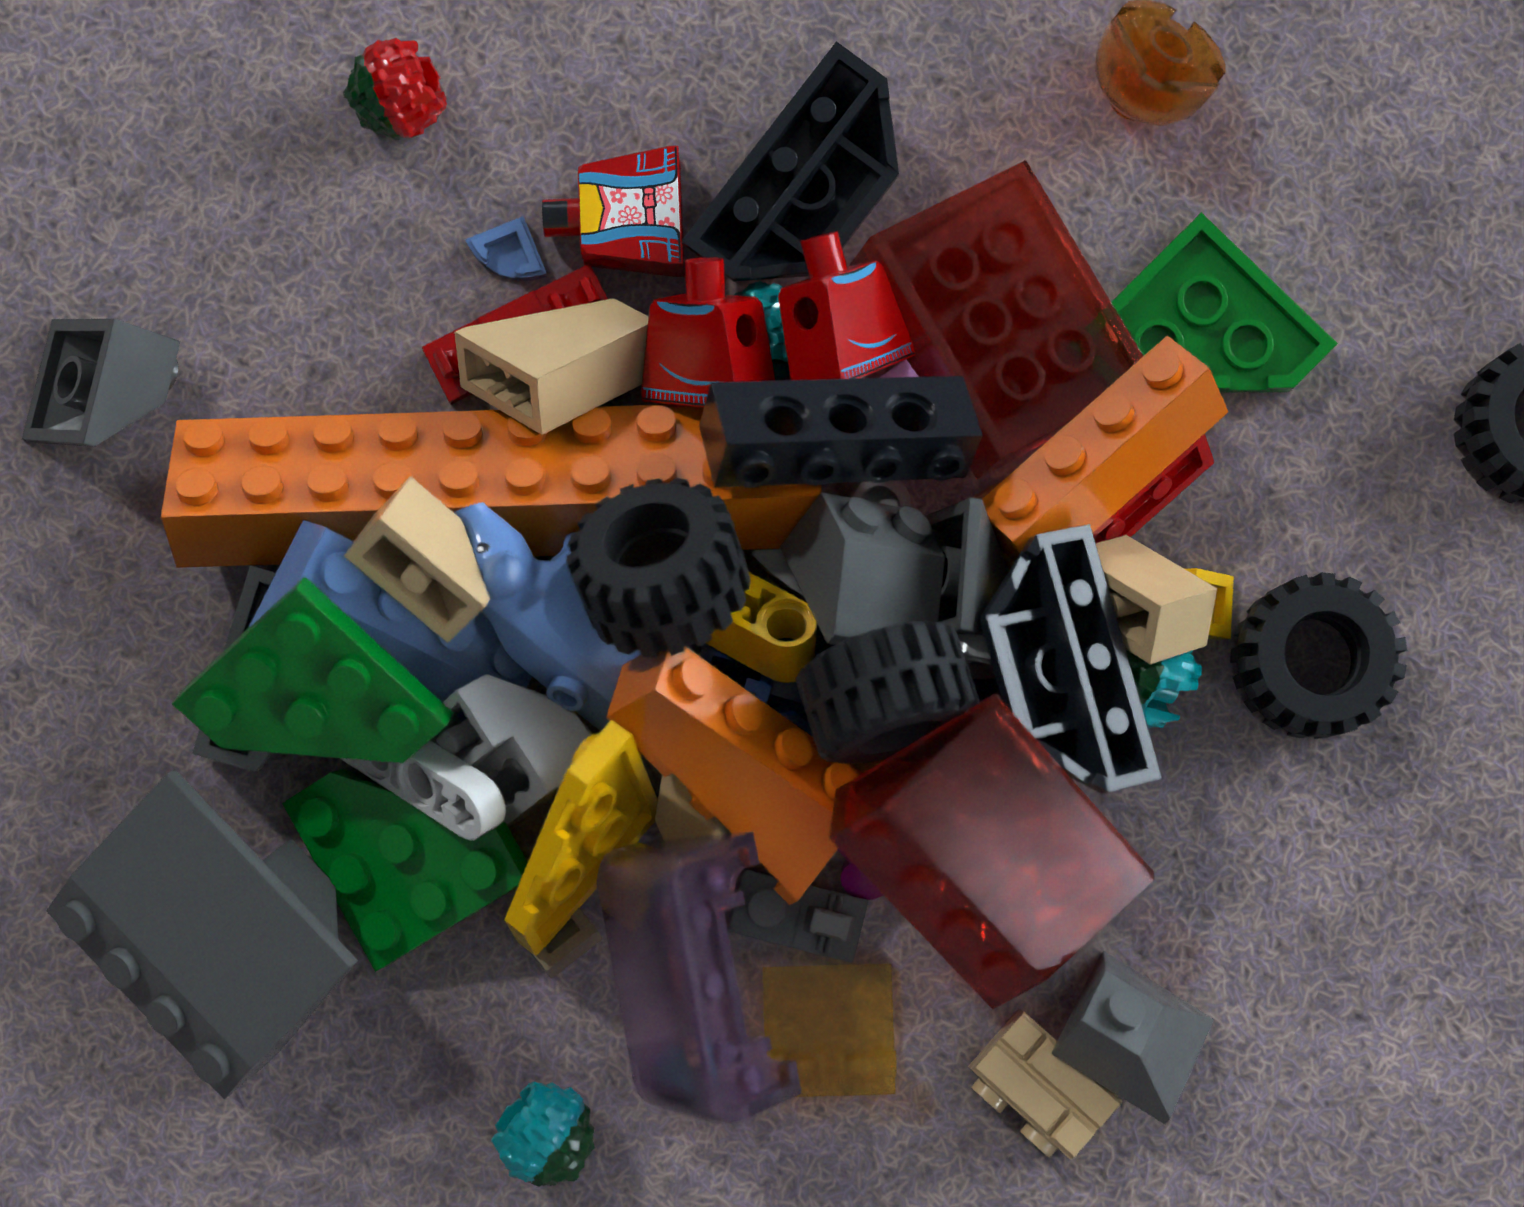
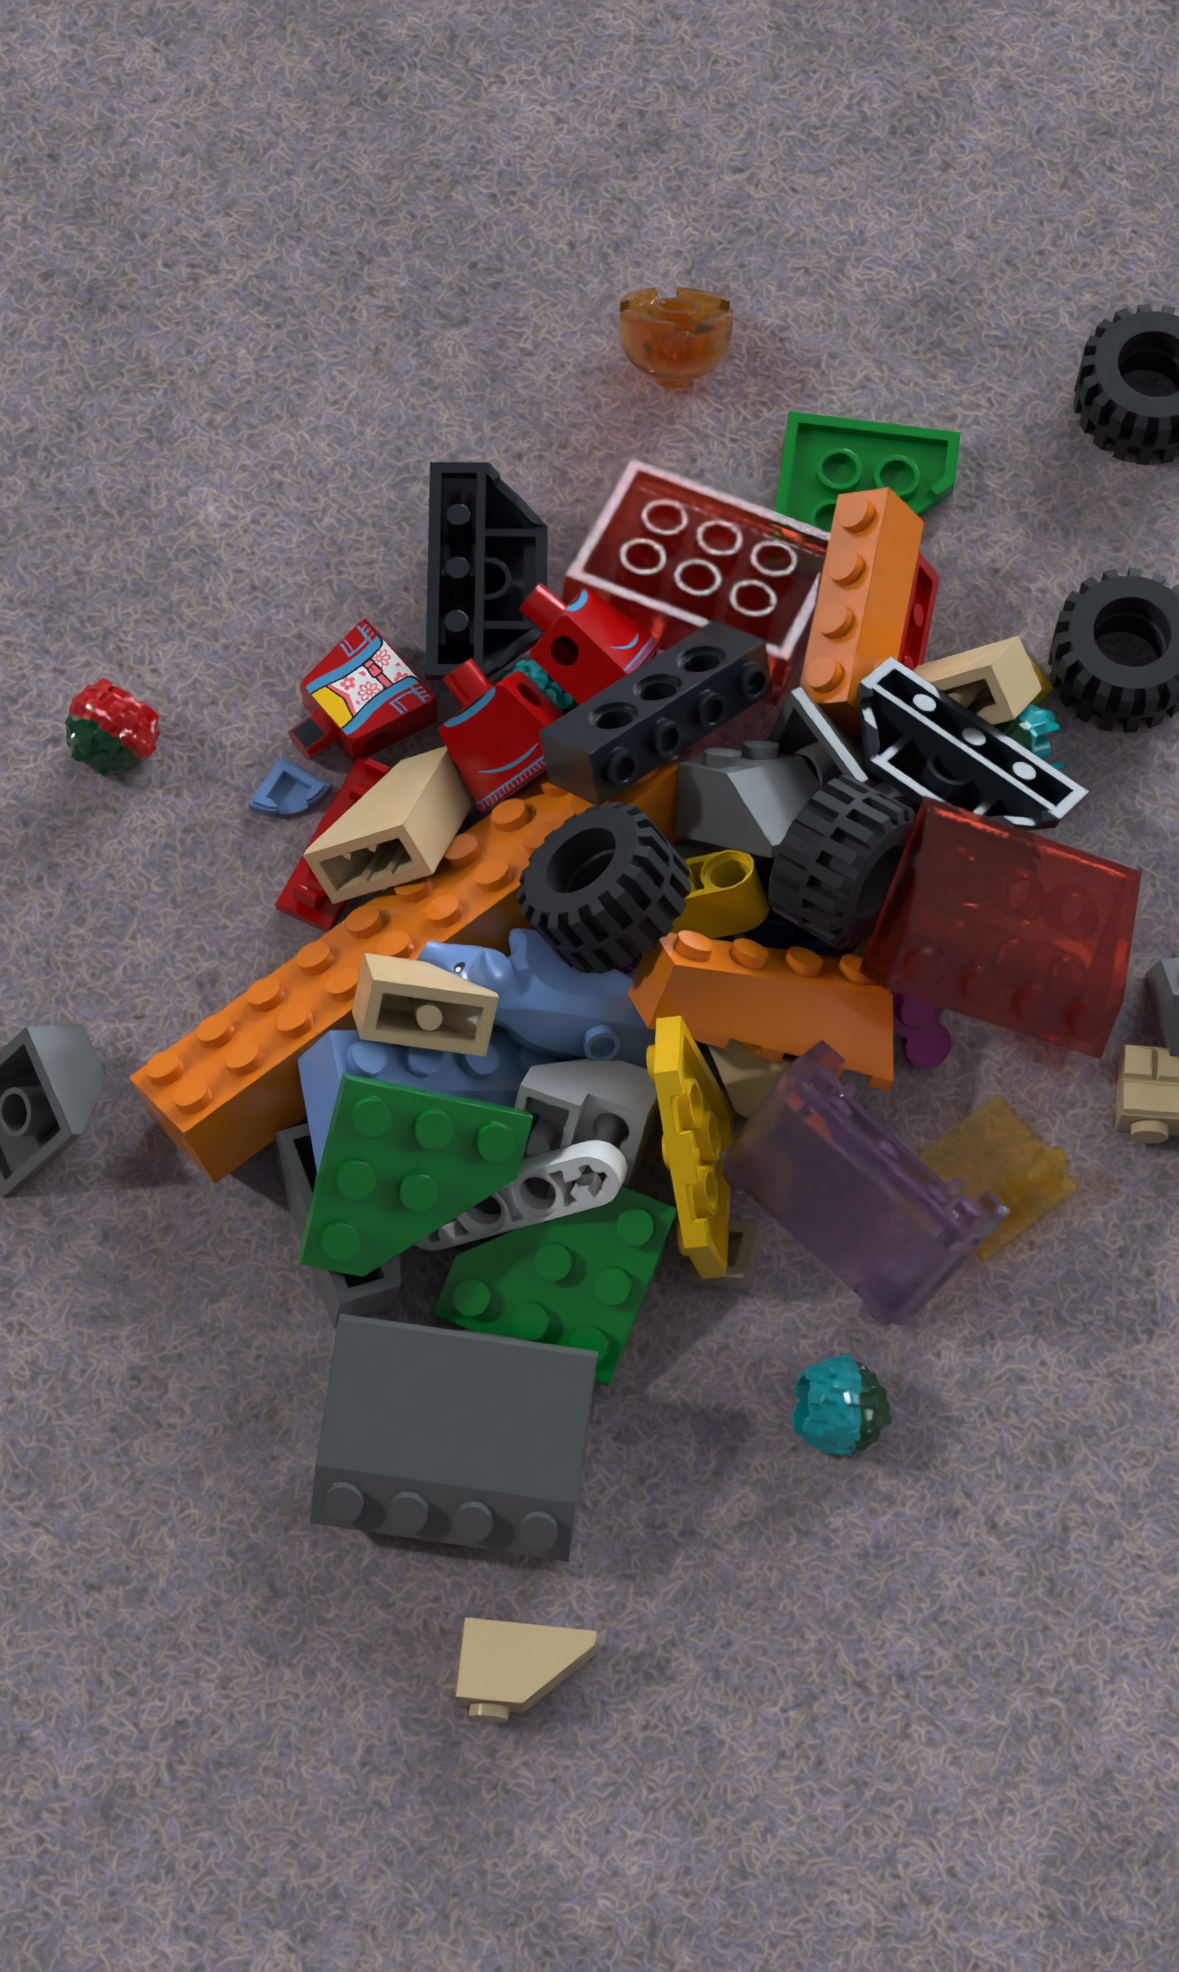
camera: 40 degrees left, 15 degrees down
(127, 1145) = (515, 1665): none -> tan slope
(816, 923) = (916, 1103): dark grey hinge -> none

